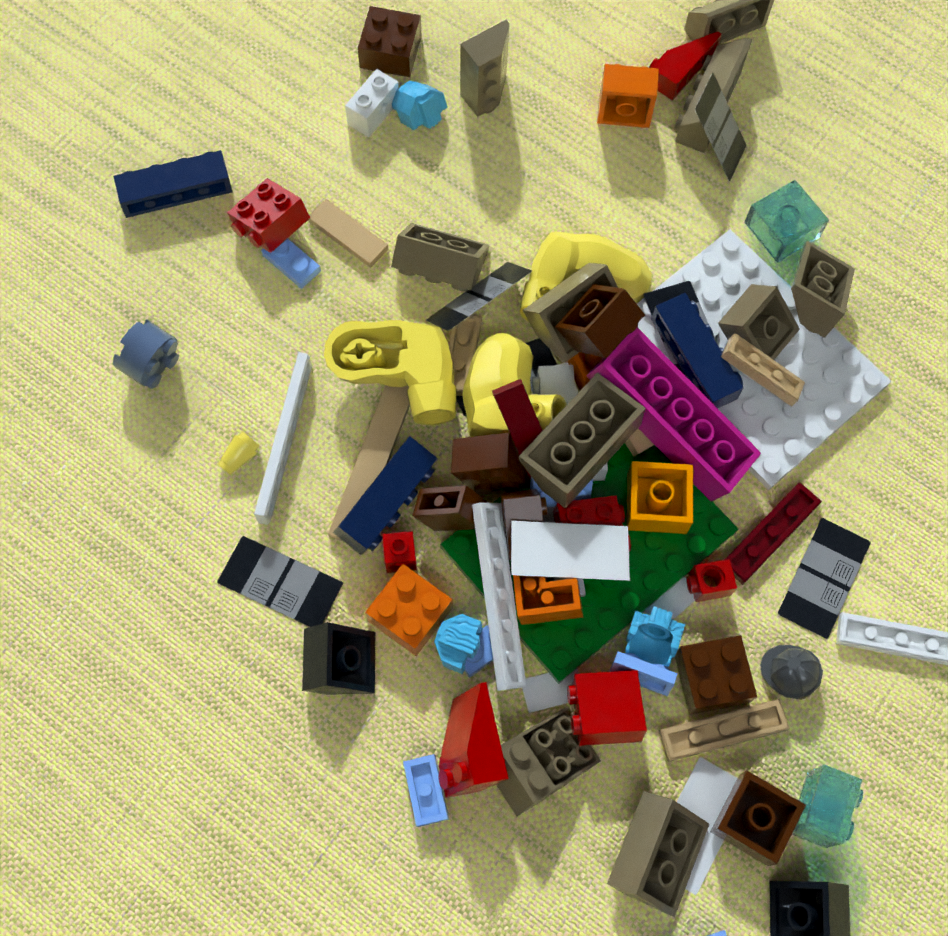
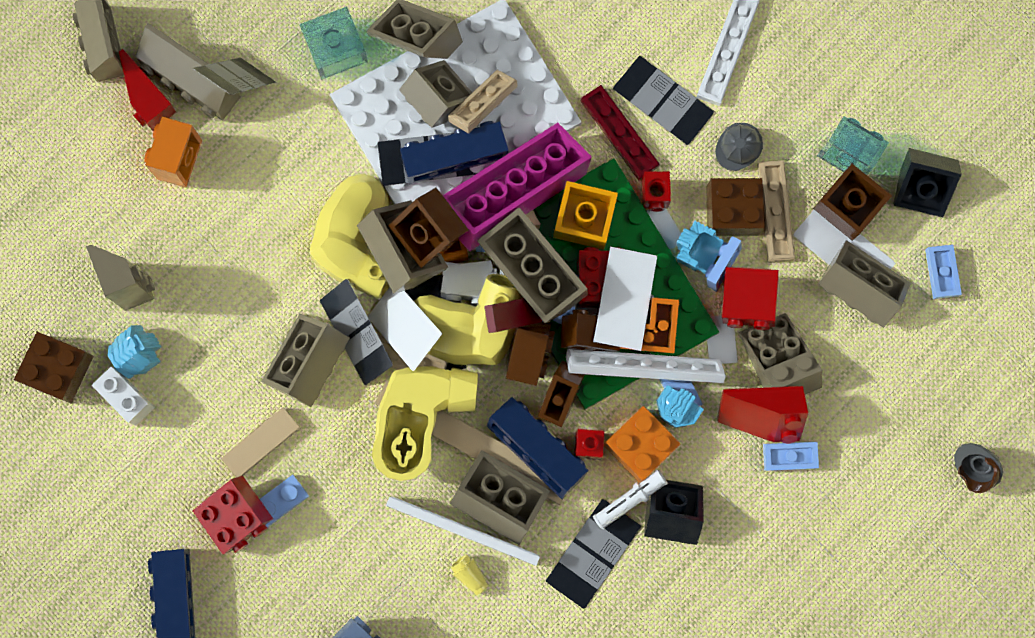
camera: 85 degrees left, 10 degrees up
(325, 467) = (500, 497): none -> dark tan slope
(351, 613) = (639, 493): none -> white pin
(490, 333) = (404, 327): none -> white sticker

